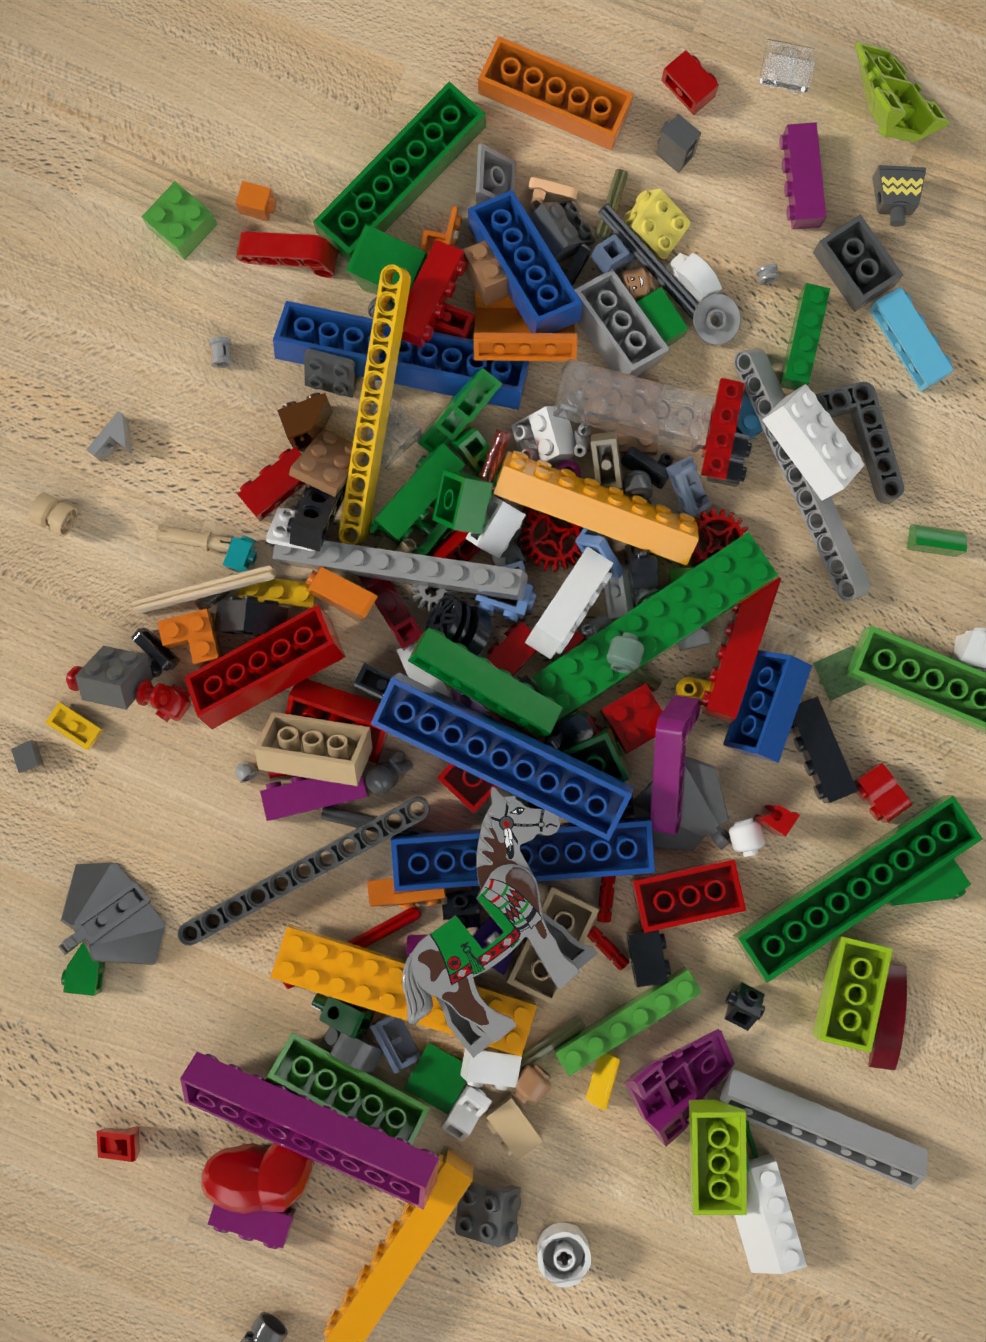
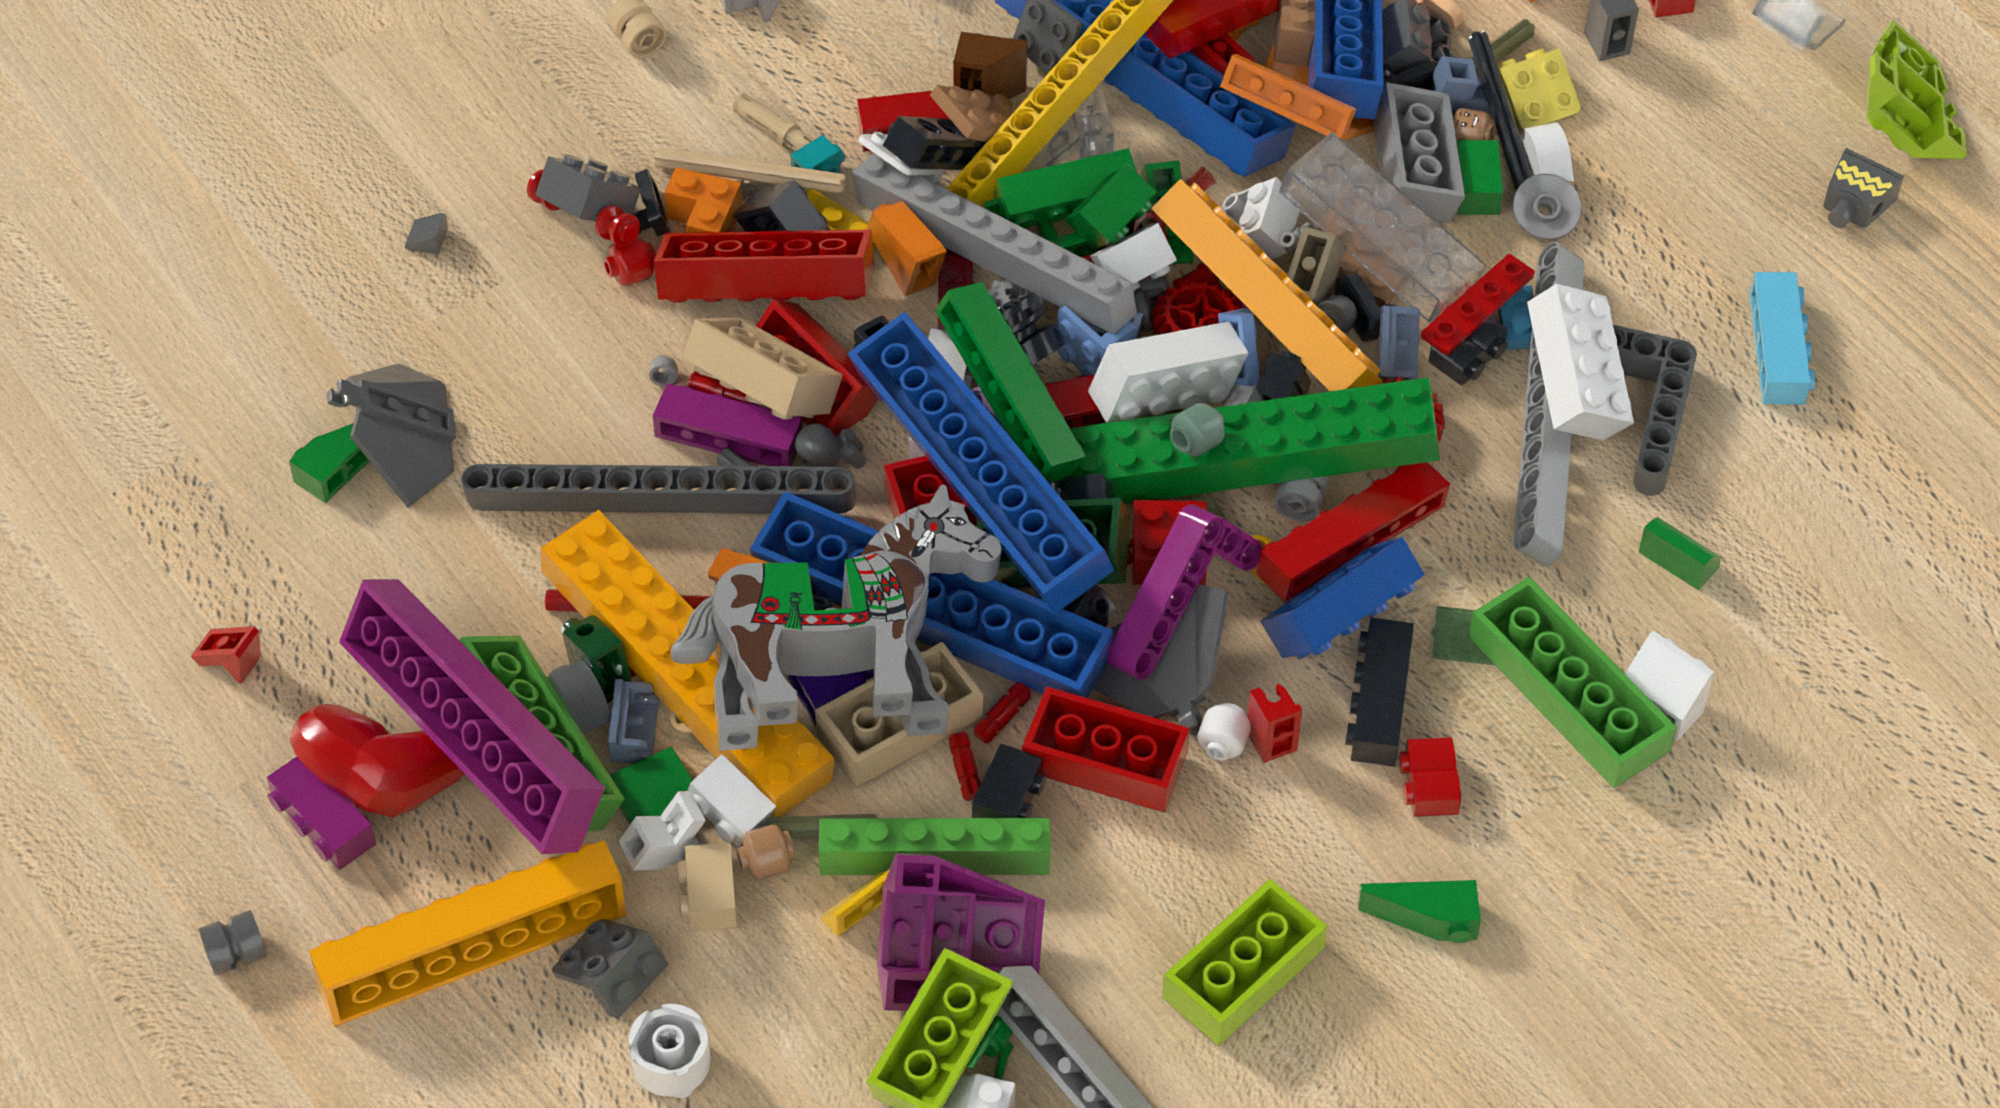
camera: 30 degrees right, 30 degrees down
(74, 726) = (503, 230): yellow plate -> none
(460, 410) = (1180, 132): green slope -> none
(748, 1002) = (1095, 905): black brick -> none
(767, 274) = (1640, 196): light grey bush -> none
(803, 176) = (1748, 124): magenta brick -> none
(804, 336) = (1650, 267): green brick -> none
(857, 263) = (1757, 227): dark grey brick -> none
(857, 887) = (1325, 849): green brick -> none
(891, 1021) = (1272, 1029): dark red slope -> none

